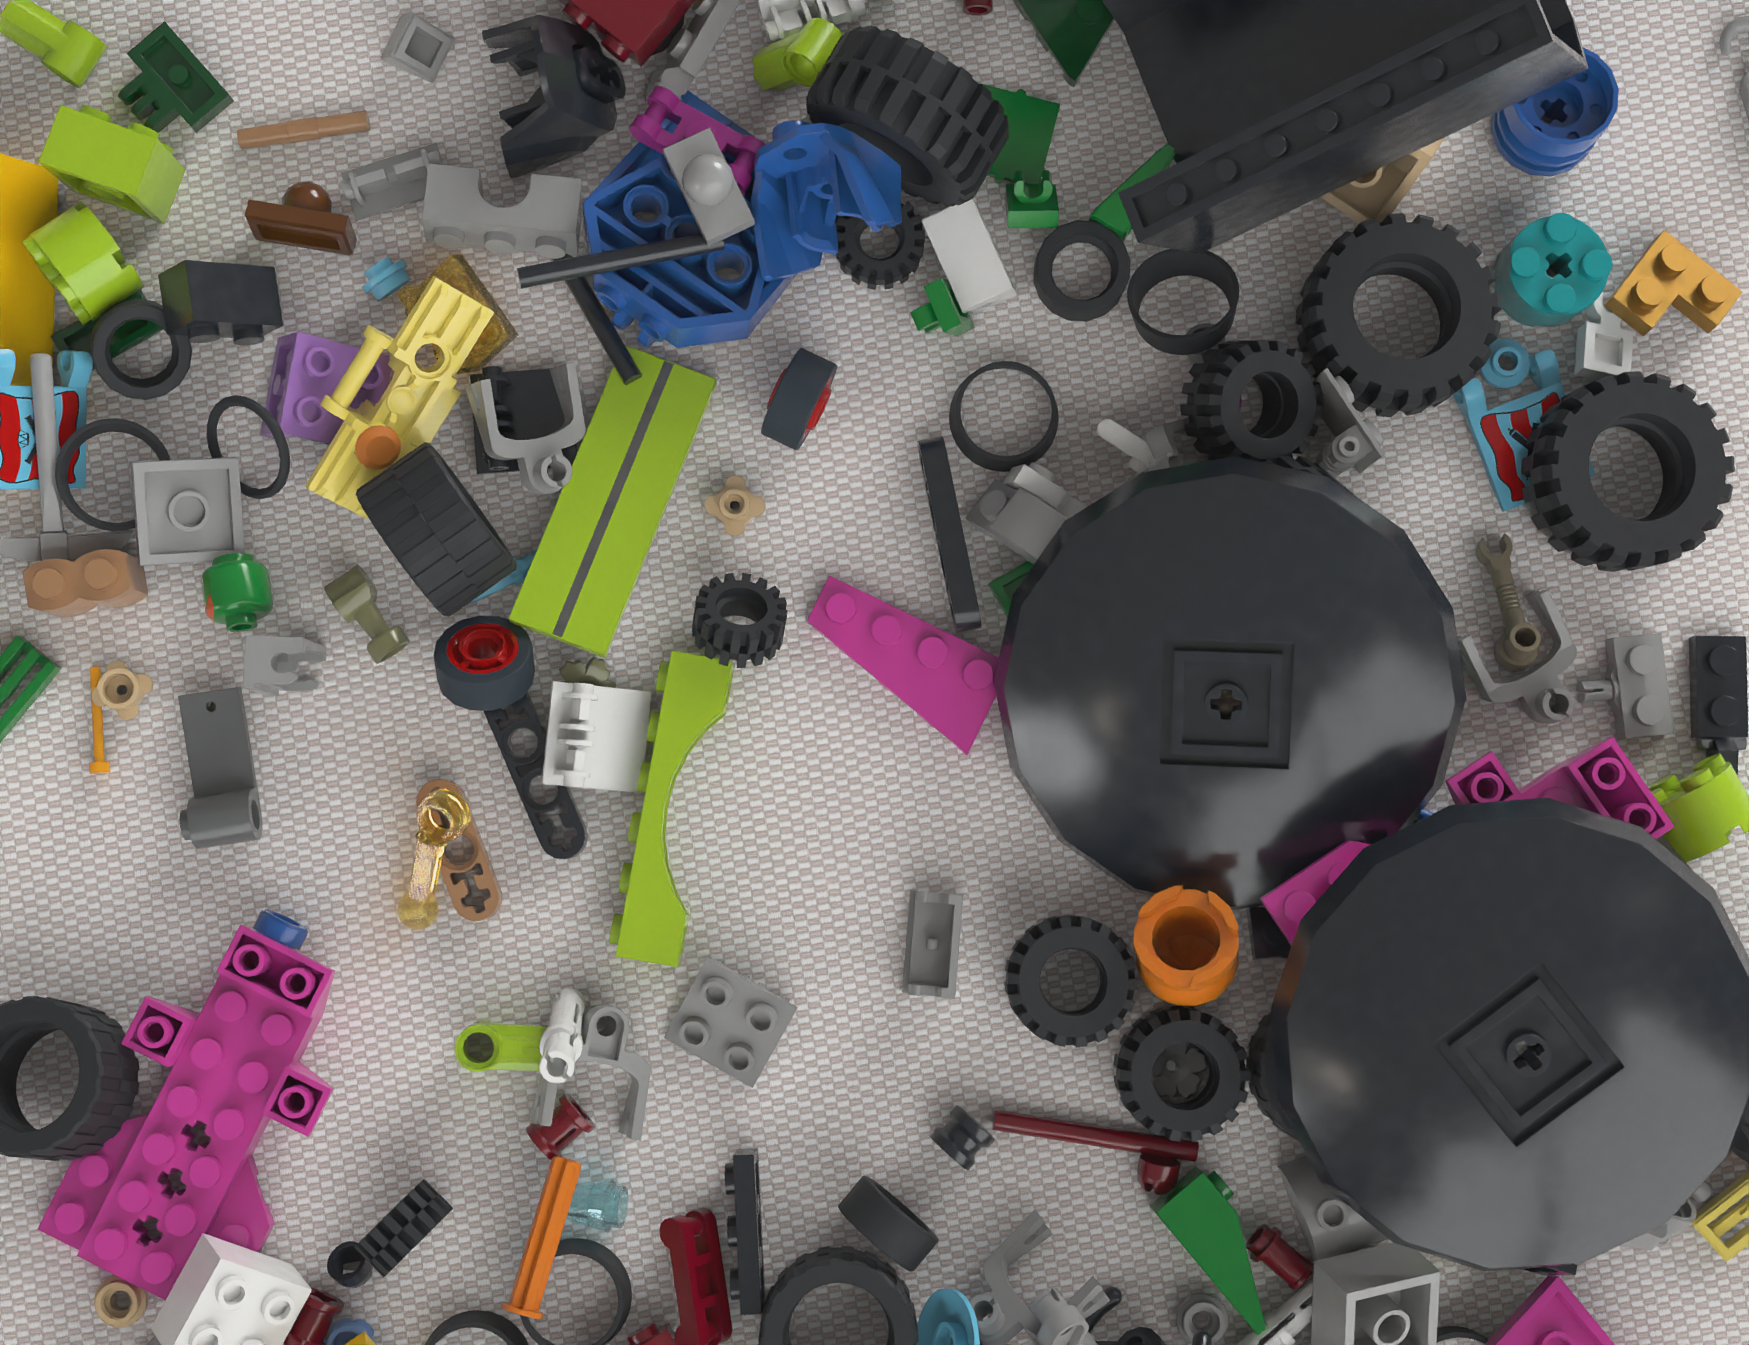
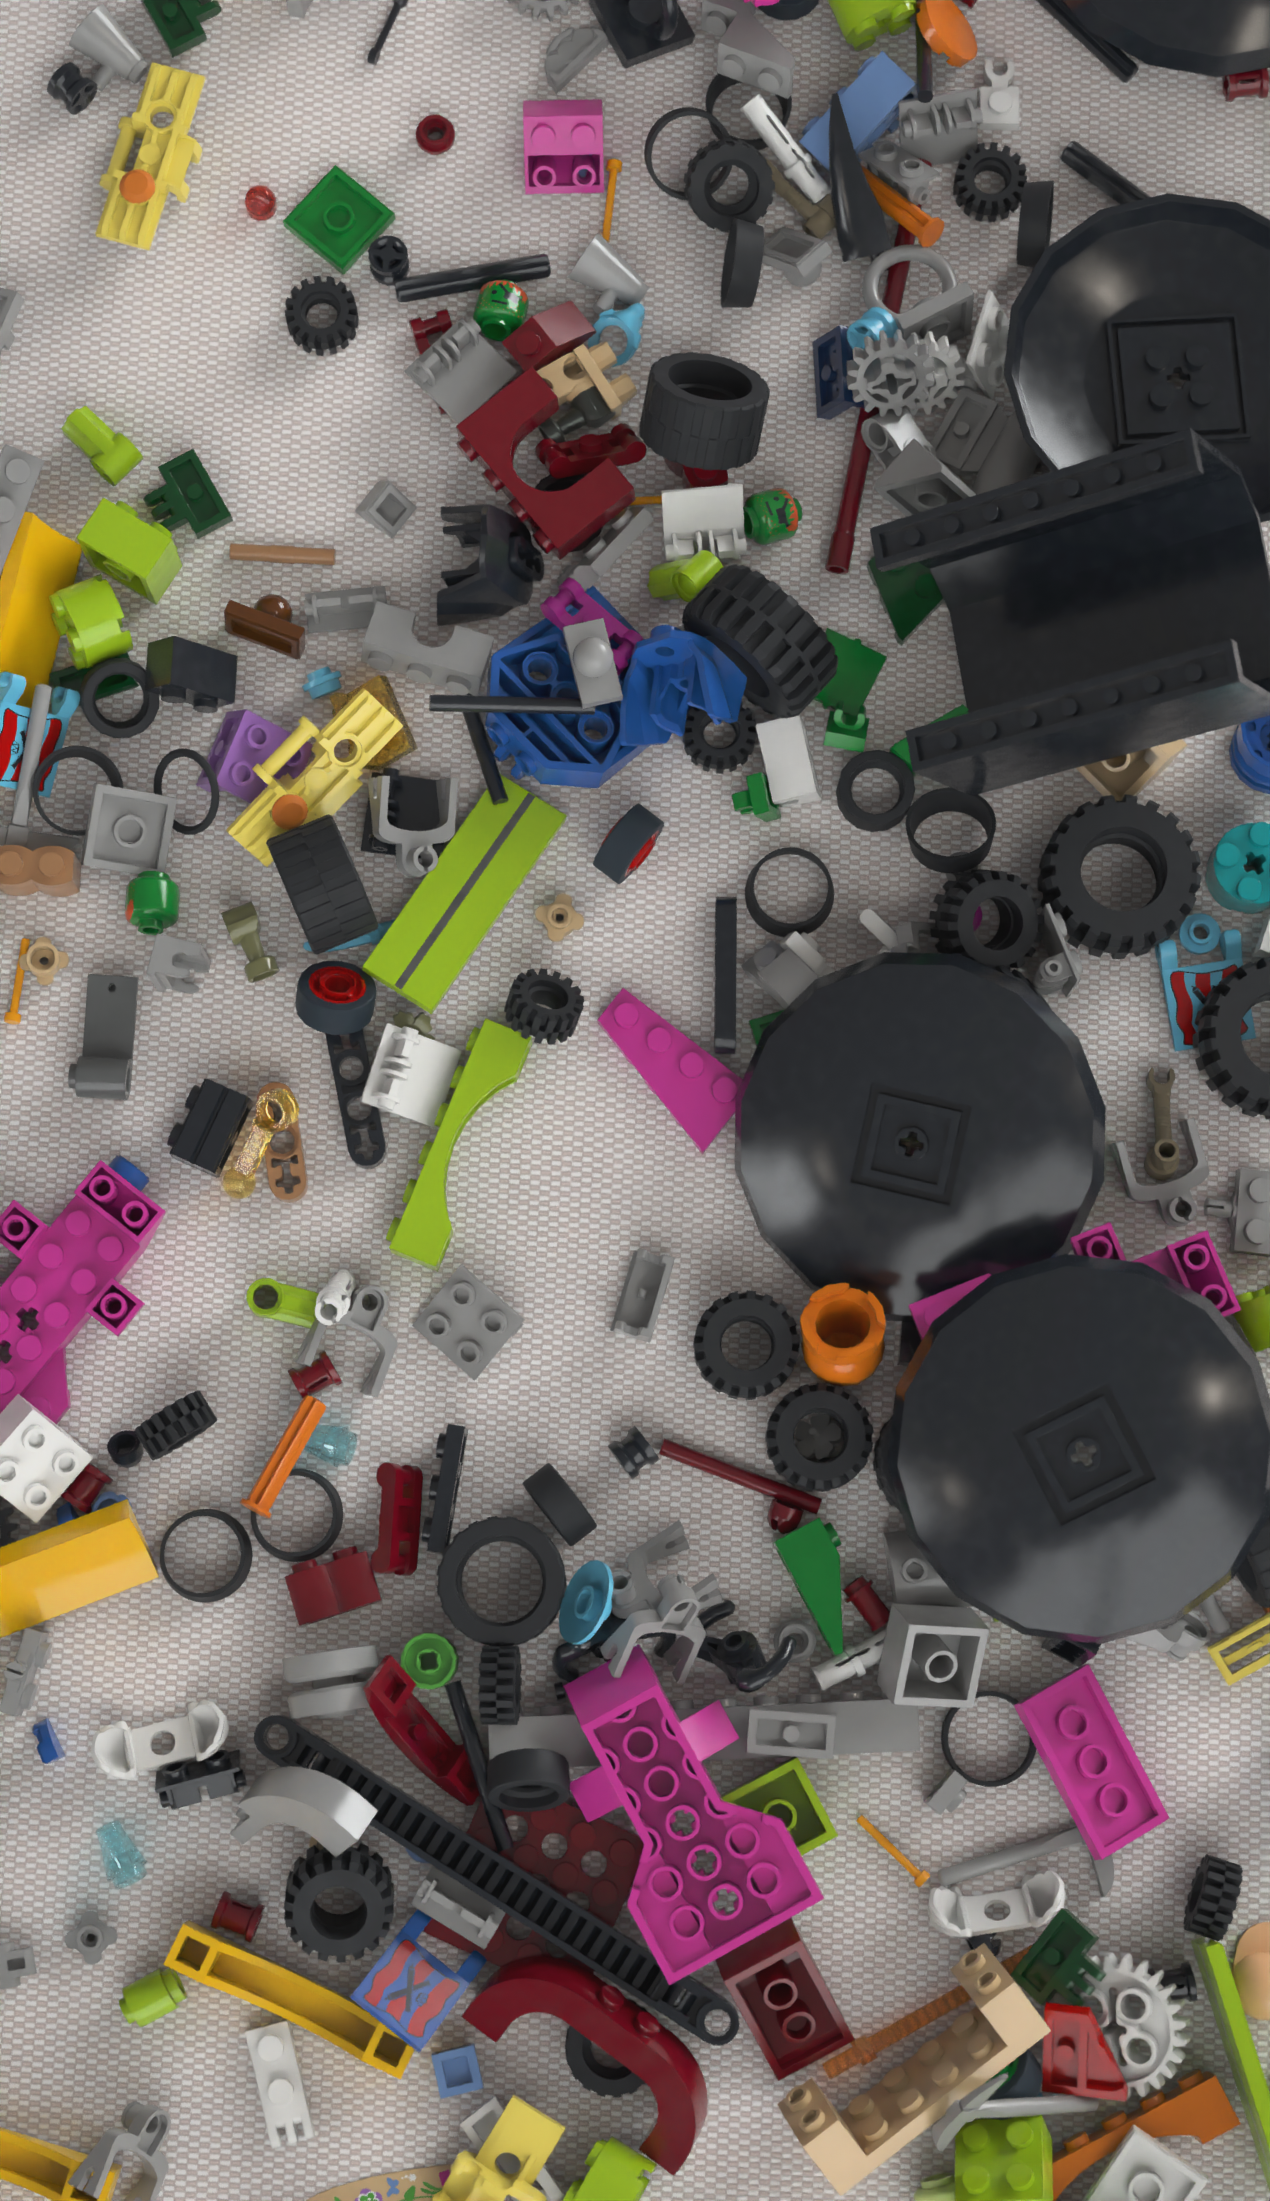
camera: 15 degrees right, 5 degrees down
(366, 852) = (210, 1127): none -> black brick

